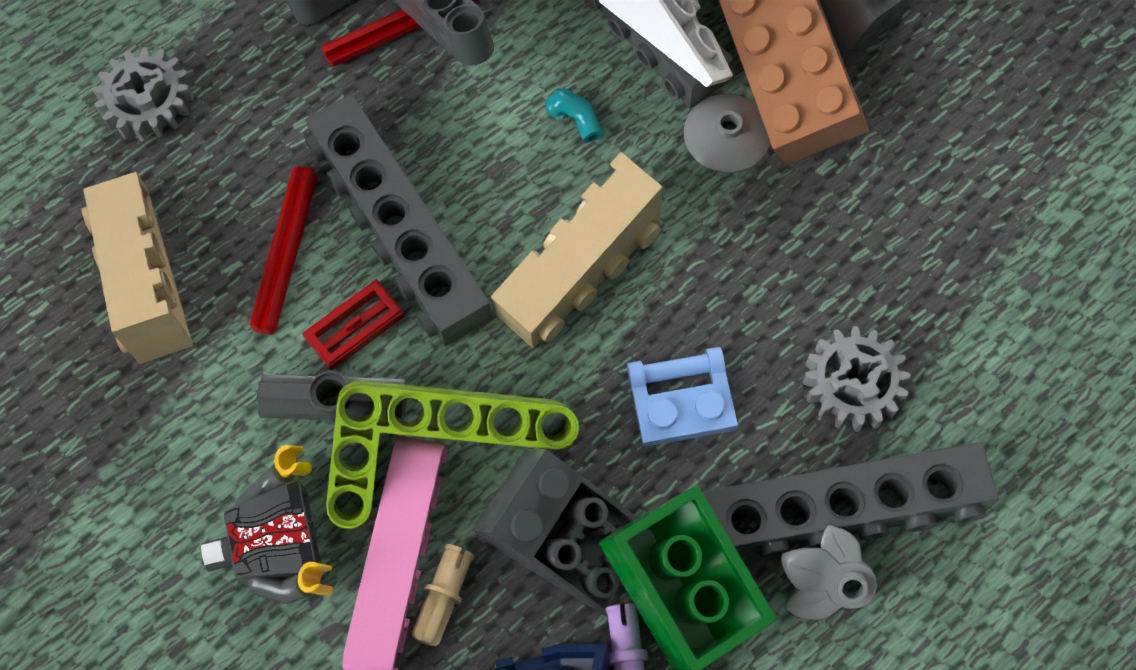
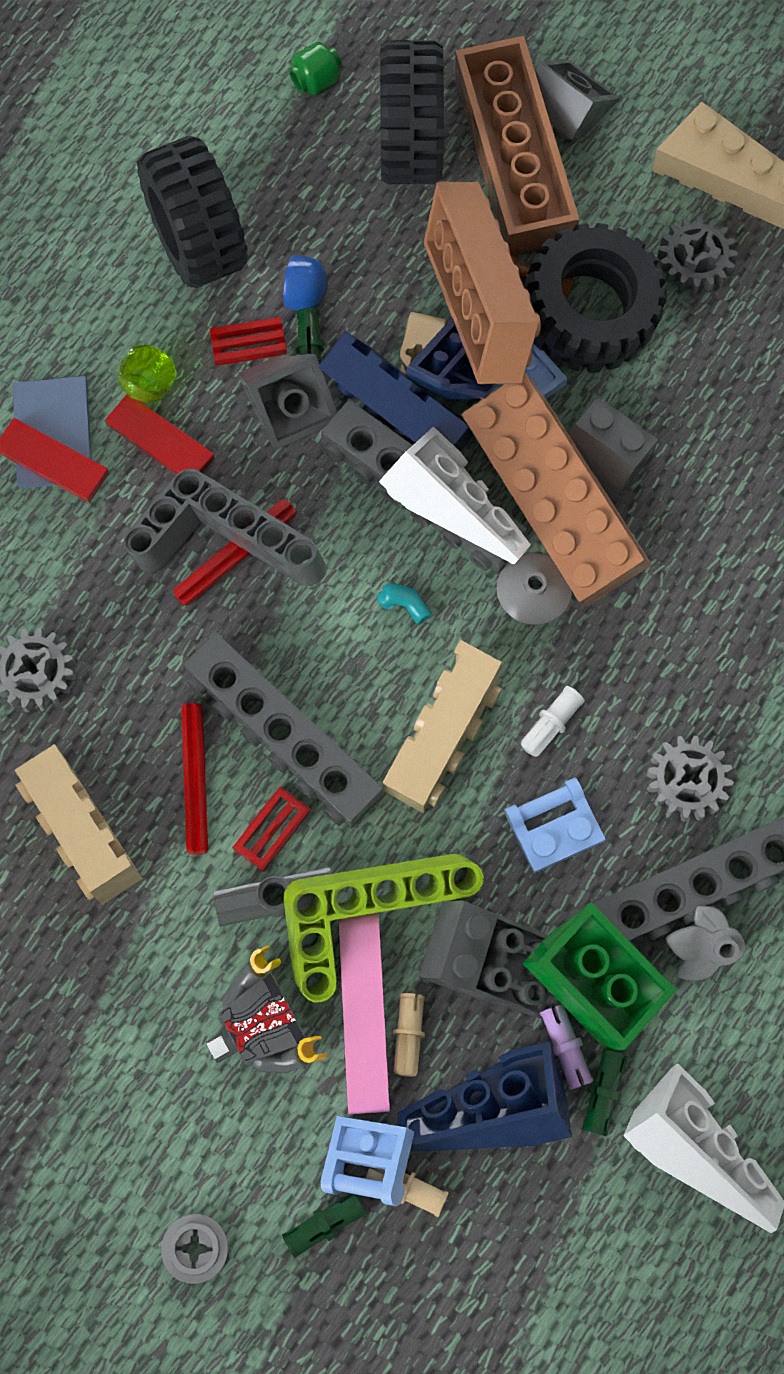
camera: 15 degrees left, 5 degrees up
(709, 279) = (552, 721): none -> white axle

